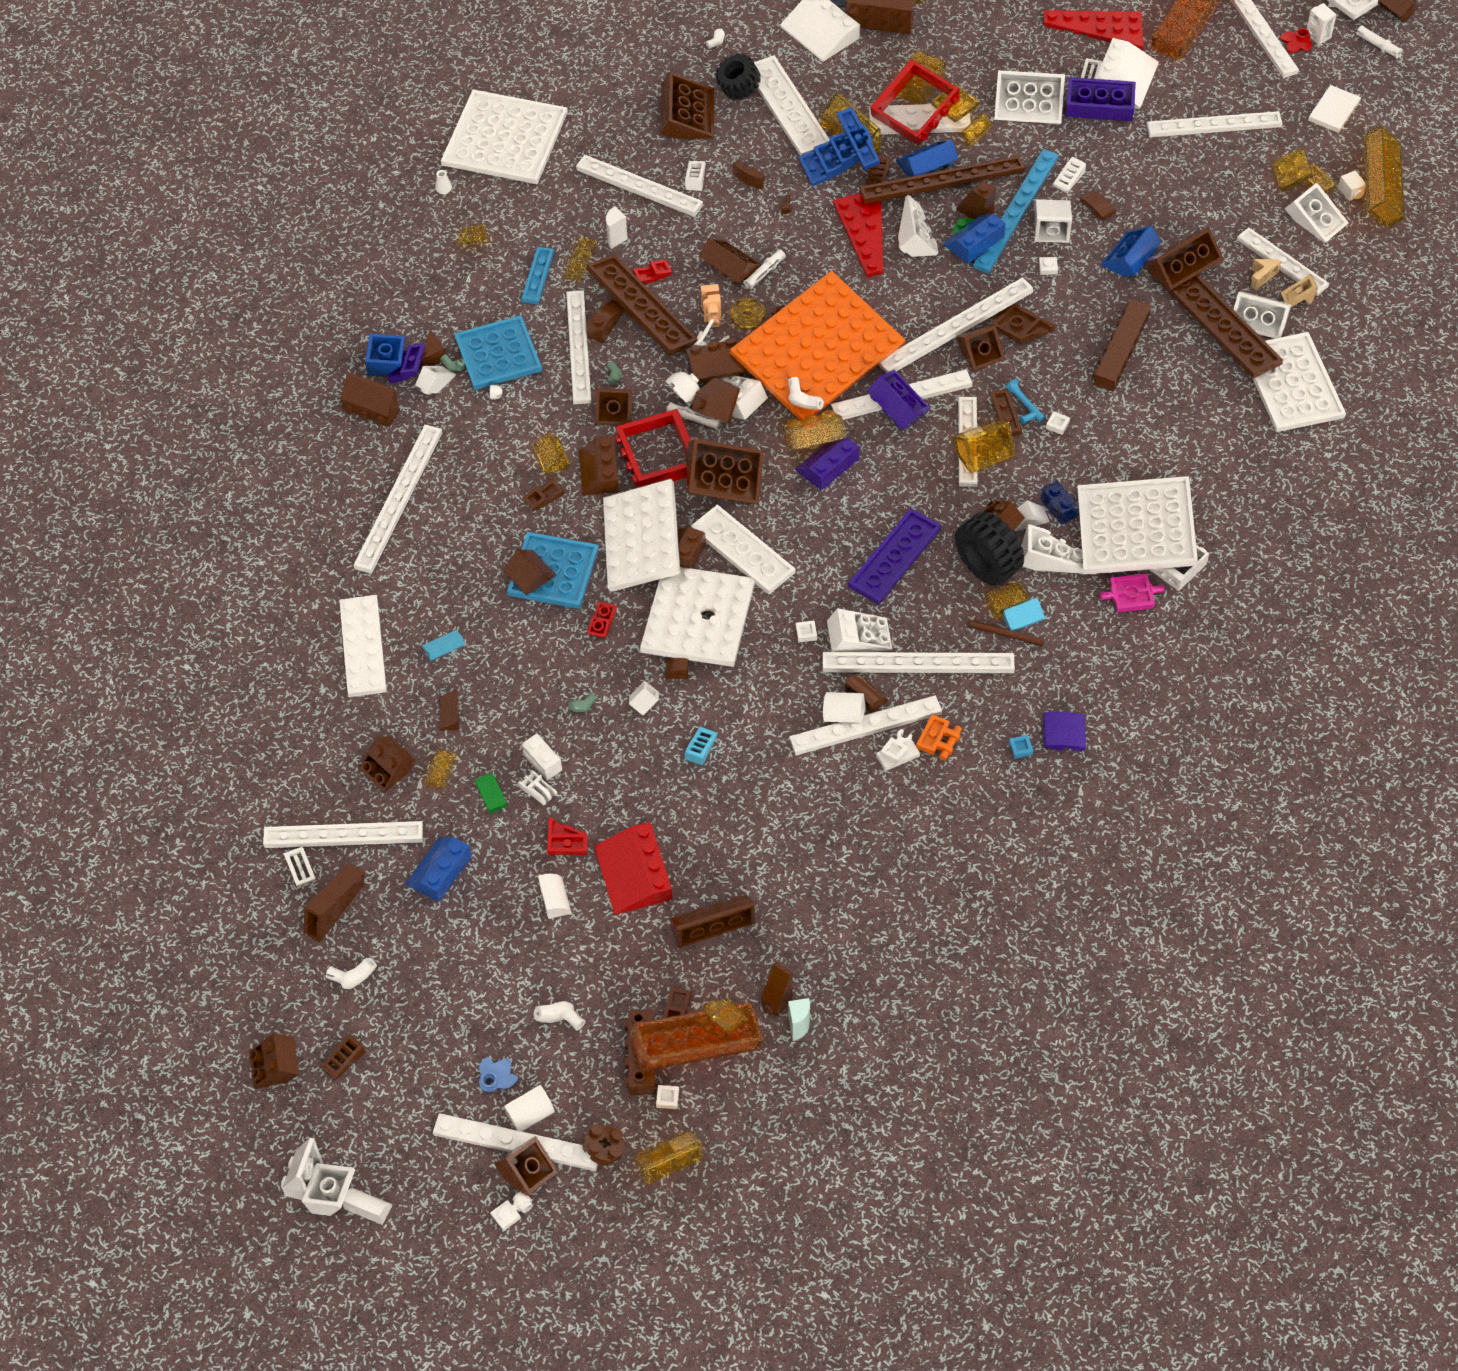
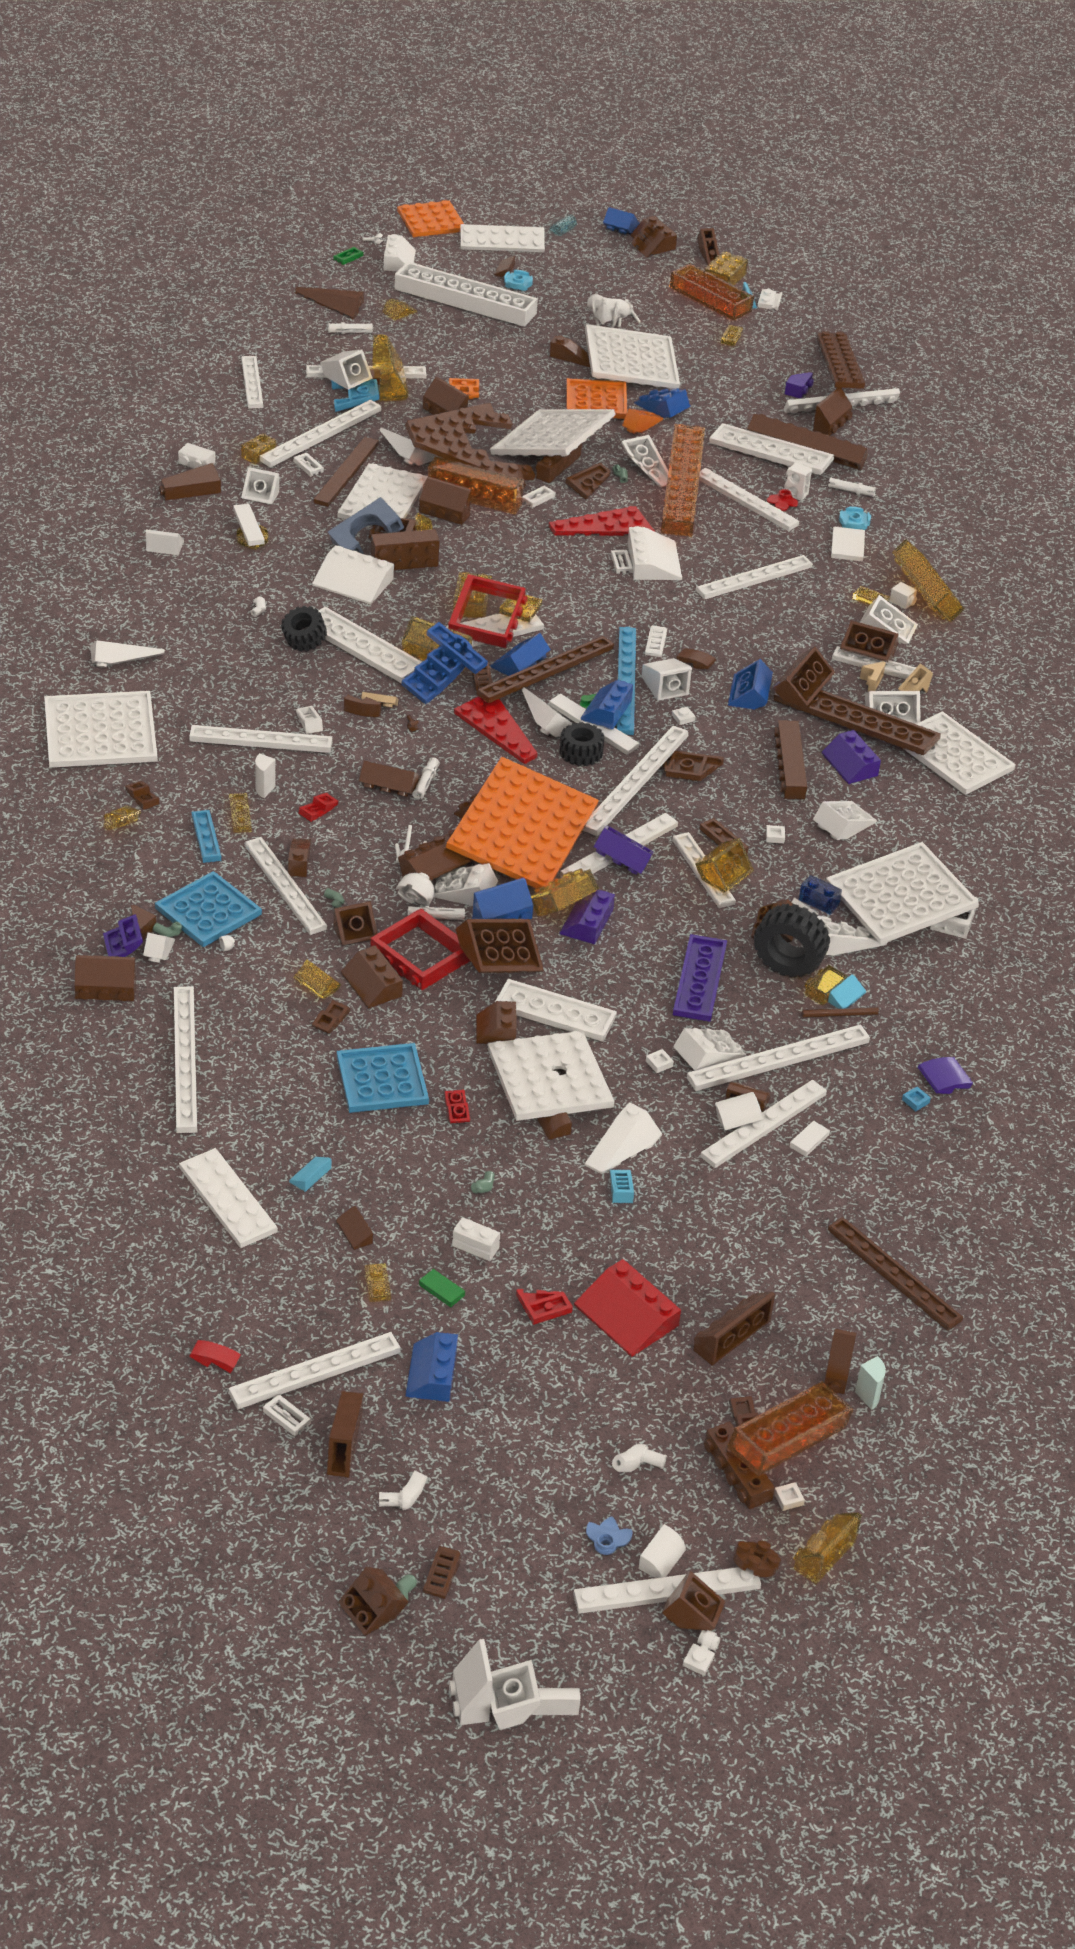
camera: 30 degrees left, 15 degrees down
(273, 793) = (208, 1352): none -> red slope
(305, 1058) = (406, 1584): none -> sand green arm
(384, 354) = (96, 935): blue slope -> none
(386, 762) = (320, 1292): reddish brown slope -> none
(443, 183) = (62, 780): white cone -> none
(505, 216) = (141, 794): none -> reddish brown slope
(528, 571) = (361, 1083): reddish brown slope -> none
(538, 788) = (487, 1267): white arm -> none
(553, 58) = (111, 653): none -> white wedge
(554, 895) = (563, 1357): white brick -> none
(641, 304) = (327, 833): reddish brown plate -> none
(641, 535) = (453, 1022): white plate -> none
(643, 698) = (542, 1160): white panel -> none
(686, 108) = (266, 666): reddish brown slope -> none
(711, 304) = (397, 815): light nougat hips -> none
(716, 400) = (456, 889): reddish brown slope -> none
(725, 1014) = (809, 1396): clear yellow slope -> none
(731, 699) = (628, 1135): none -> white wedge
(743, 321) = (440, 821): clear yellow plate -> none
(752, 427) = (504, 901): none -> blue slope
(774, 174) = (386, 701): none -> tan plate
(801, 399) = (539, 867): white arm -> none
(894, 917) = (895, 1273): none -> reddish brown tile
(896, 748) = (808, 1130): white plate -> none
(927, 282) = (581, 744): none -> black tyre
(933, 734) = (832, 1112): orange plate -> none
(966, 272) = (612, 736): none -> white tile
(976, 129) = (550, 624): clear yellow plate -> none
(978, 201) = (593, 676): reddish brown slope -> none
(981, 346) = (668, 790): reddish brown slope -> none
(1029, 97) = (581, 588): white slope -> none
(1034, 412) = (748, 832): dark azure piece -> none
(1100, 99) = (648, 576): dark purple slope -> none
(1132, 592) = (929, 949): dark pink plate -> none
(1134, 425) = (842, 818): none -> white slope
(1183, 359) = (852, 757): none -> dark purple slope
(1280, 233) = (870, 641): none -> reddish brown slope
(1292, 169) = (846, 593): clear yellow plate -> none
(1363, 87) = (854, 518): none -> medium azure plate

